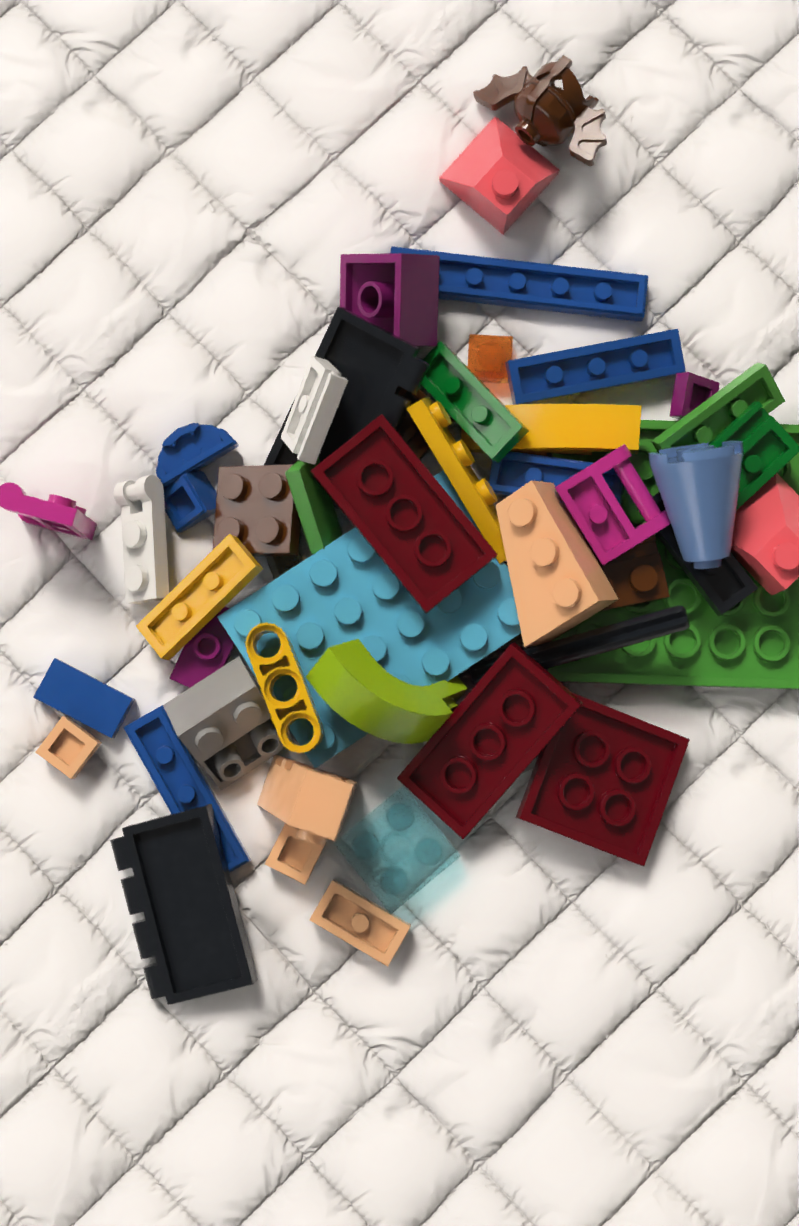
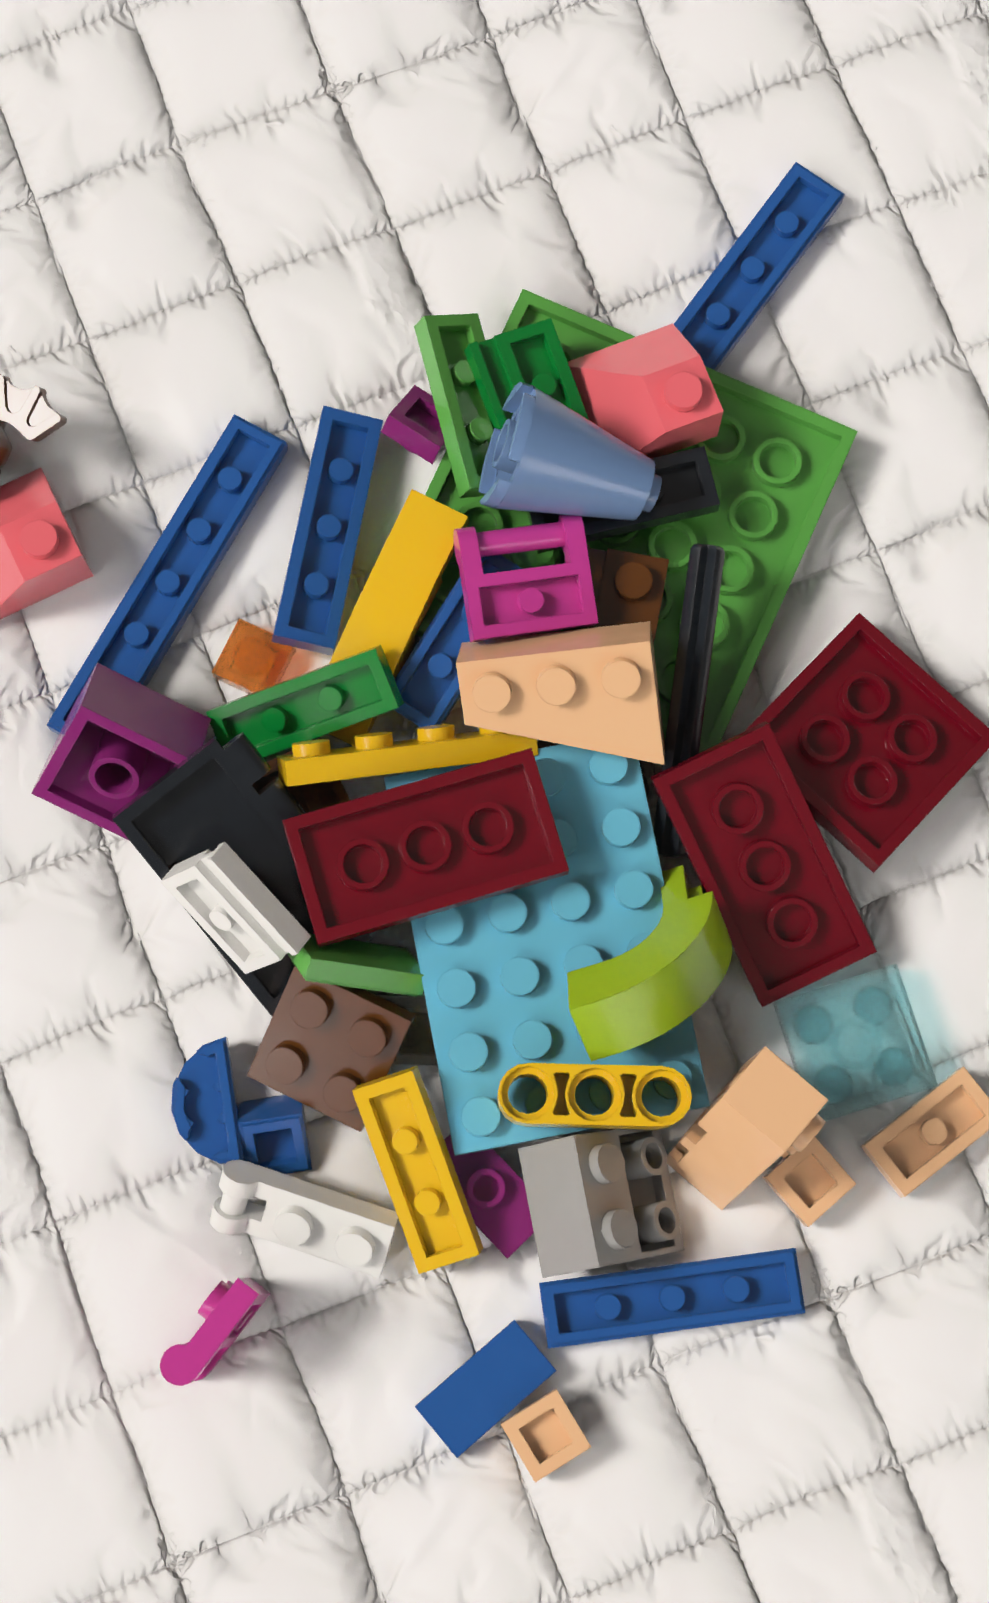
camera: 70 degrees left, 5 degrees down
(186, 904) = (821, 1355): black hinge -> none

